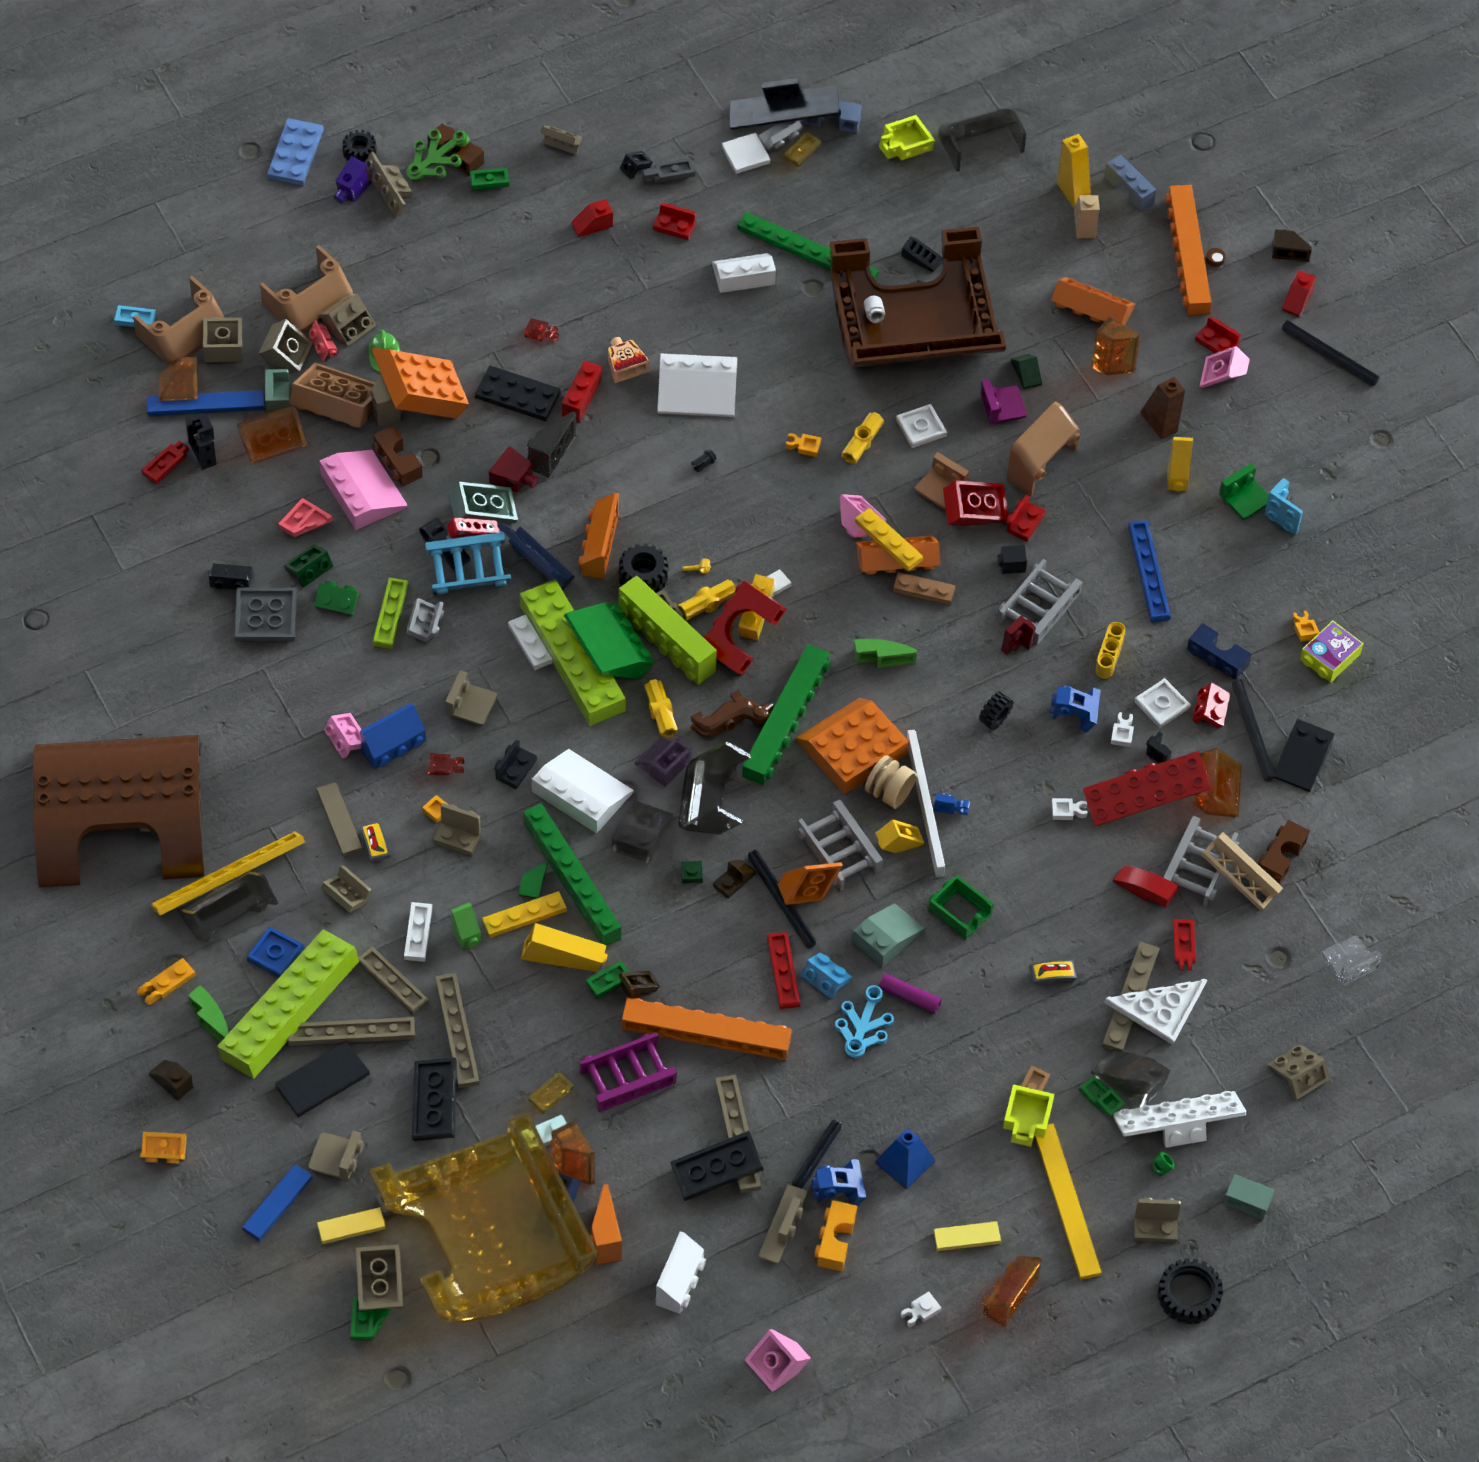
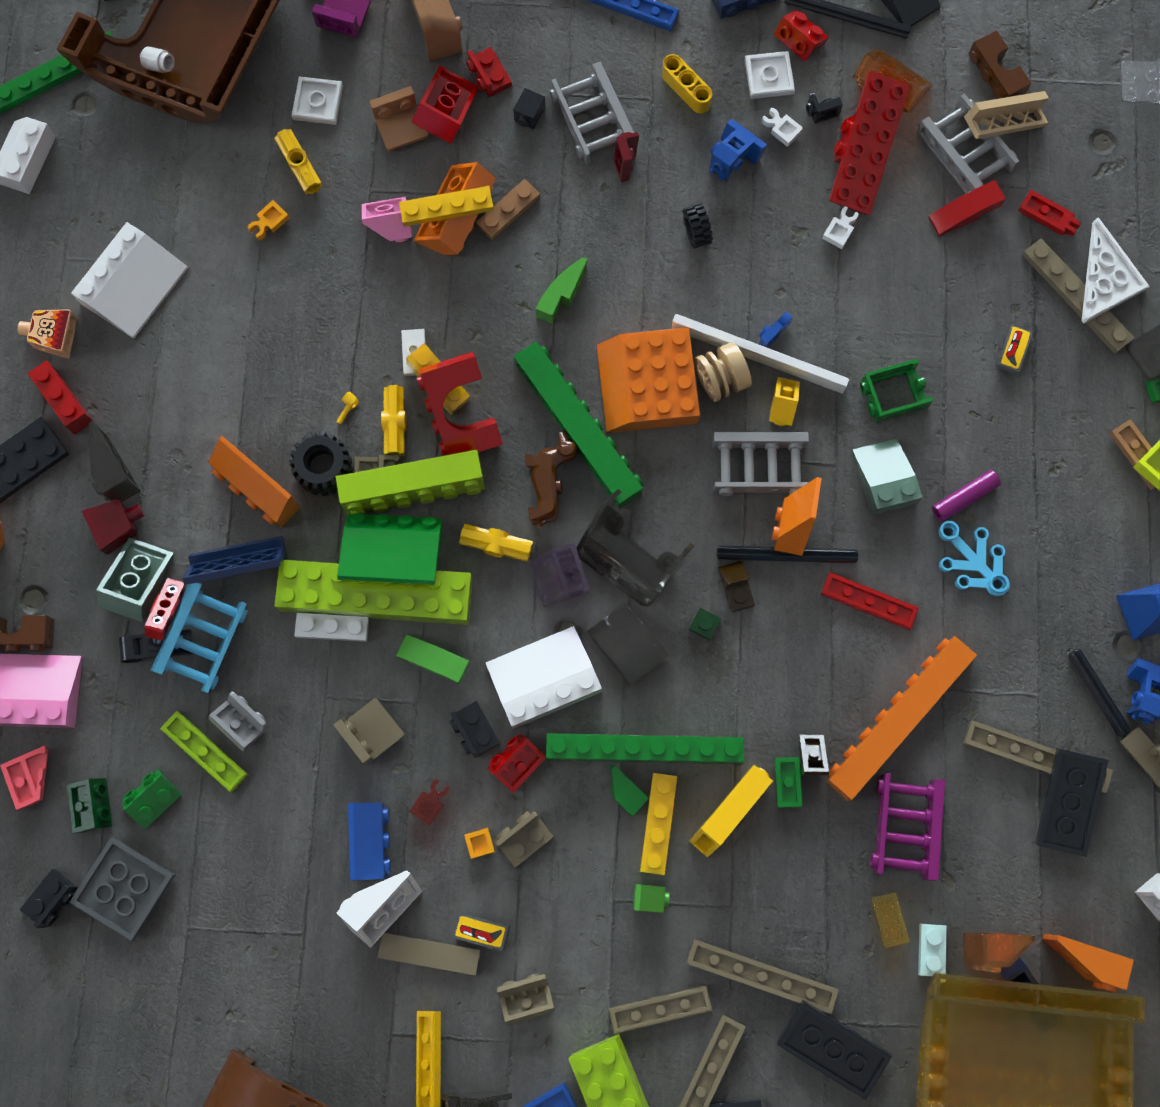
camera: 55 degrees left, 20 degrees up
(343, 733) = (326, 887): bright pink bracket -> none
(354, 765) = (378, 906): none -> white slope
(418, 932) = (619, 949): white plate -> none
(508, 802) = (516, 762): none -> red bracket
(548, 714) = (433, 659): none -> bright green slope
(704, 460) = (223, 322): black pin -> none
(825, 975) = (900, 563): dark azure bracket -> none

